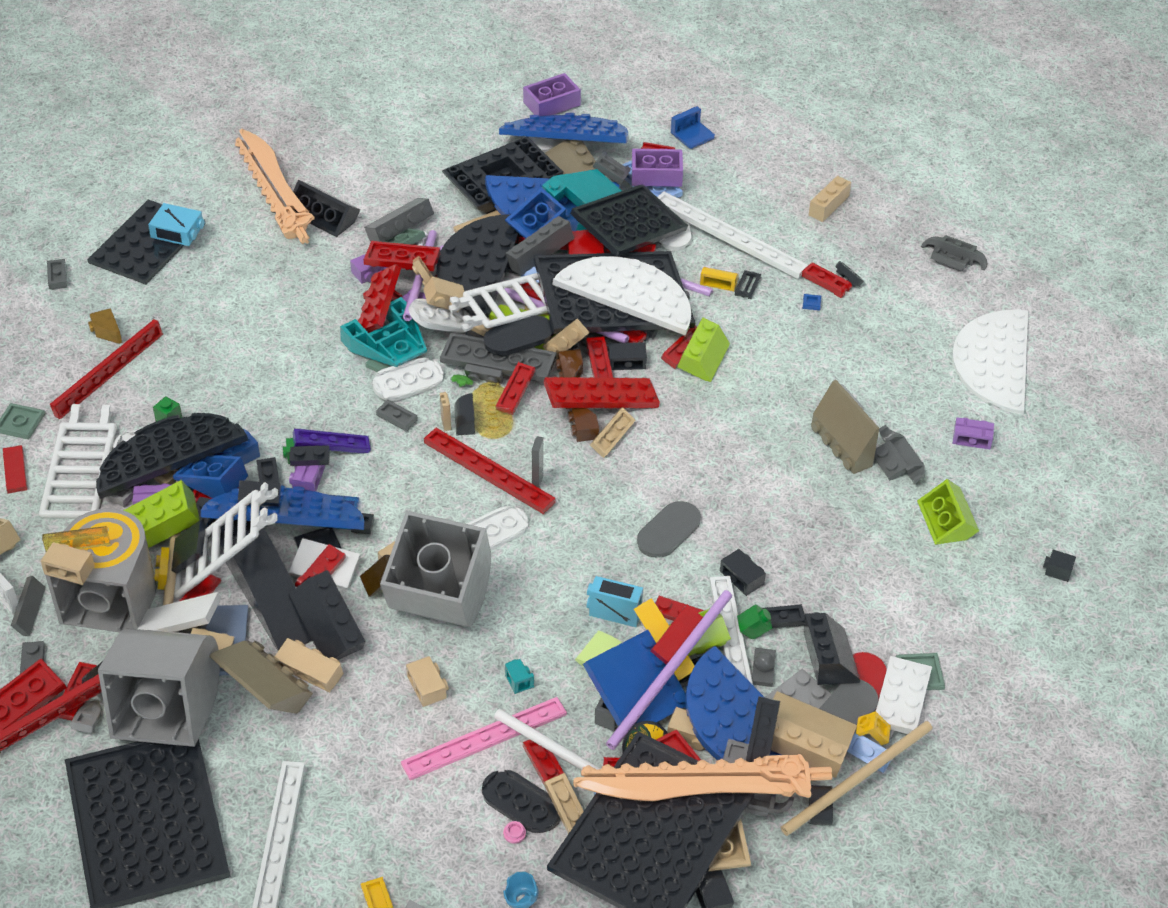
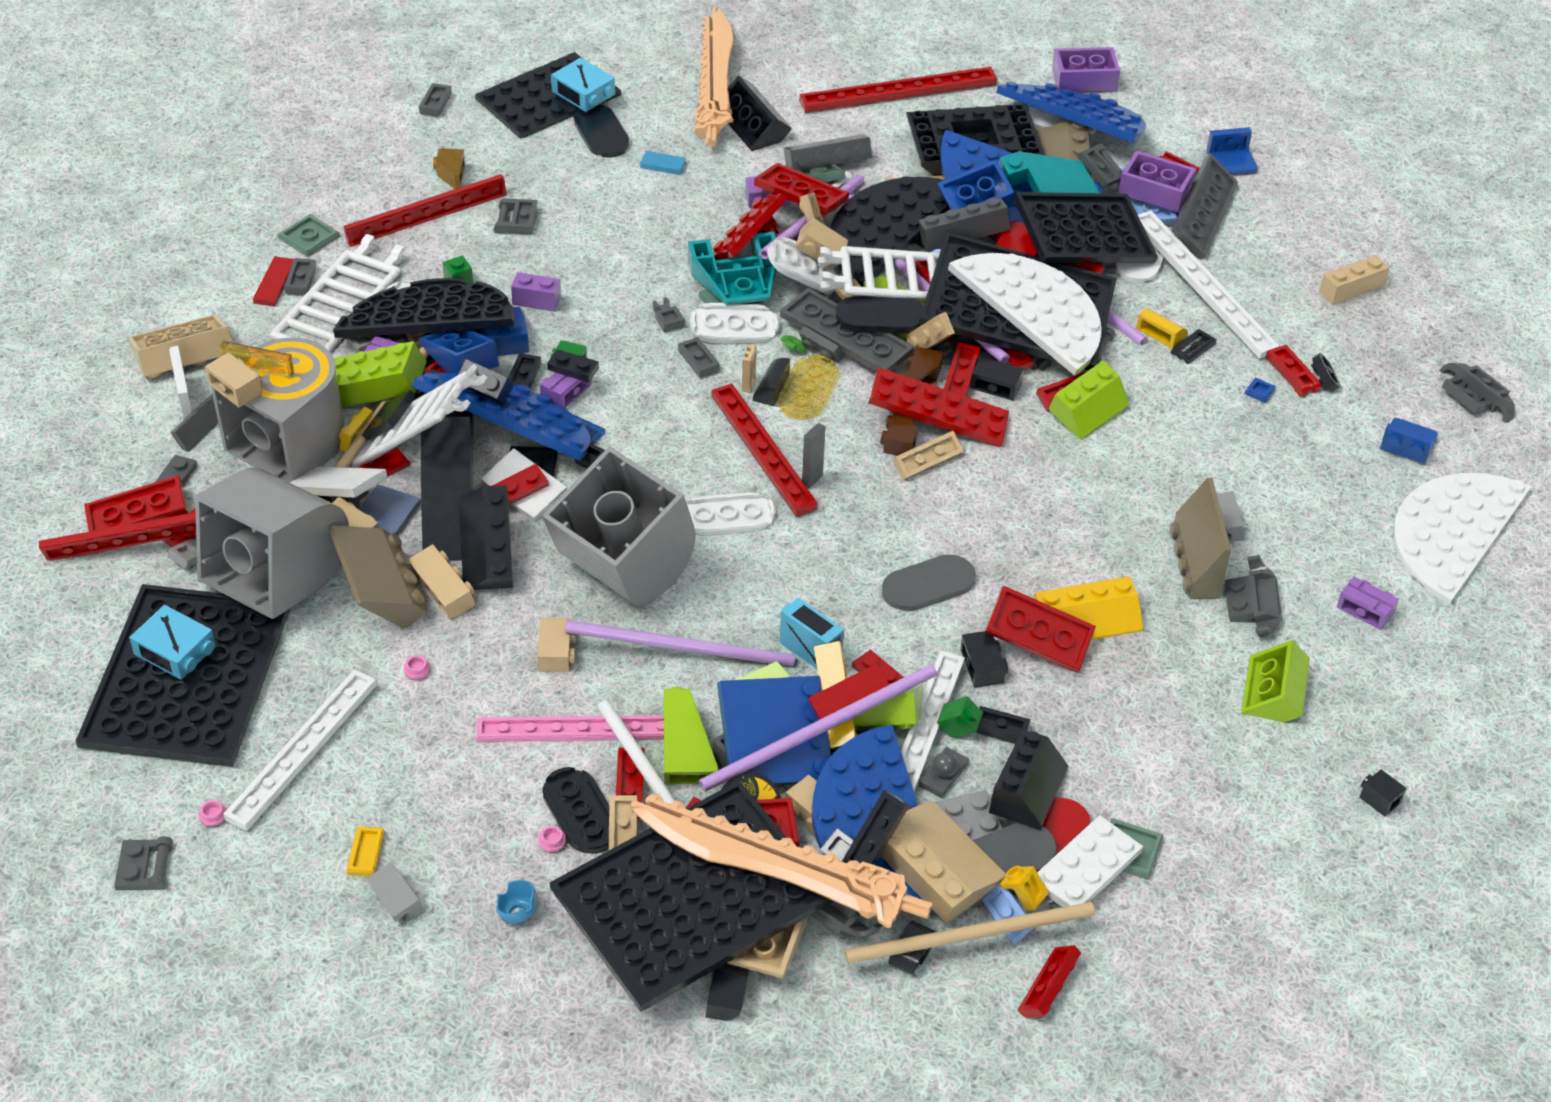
camera: 25 degrees right, 0 degrees up
(35, 457) = (300, 276): none -> dark grey plate
(125, 796) = (172, 642): none -> medium azure brick
(189, 347) = (522, 219): none -> dark grey plate
(209, 258) = (601, 131): none -> black tile
(240, 405) = (536, 291): none -> medium lavender brick
(273, 268) = (663, 162): none -> dark azure tile
(328, 740) = (416, 667): none -> bright pink plate
(336, 441) = (610, 359): dark purple tile -> none
(353, 391) = (668, 317): none -> dark grey plate
(419, 154) = (897, 89): none -> red plate
(515, 388) = (843, 370): red tile -> none
(519, 644) = (679, 643): none -> lavender piece
(519, 676) = (657, 676): teal brick -> none
(569, 716) = (686, 745): none -> lime slope
(698, 176) = (1204, 206): none -> dark grey plate
(772, 534) = (1040, 629): none -> red tile
(793, 509) = (1106, 604): none -> yellow slope
(925, 790) = (1049, 981): none -> red plate
(932, 304) = (1408, 440): none -> blue bracket

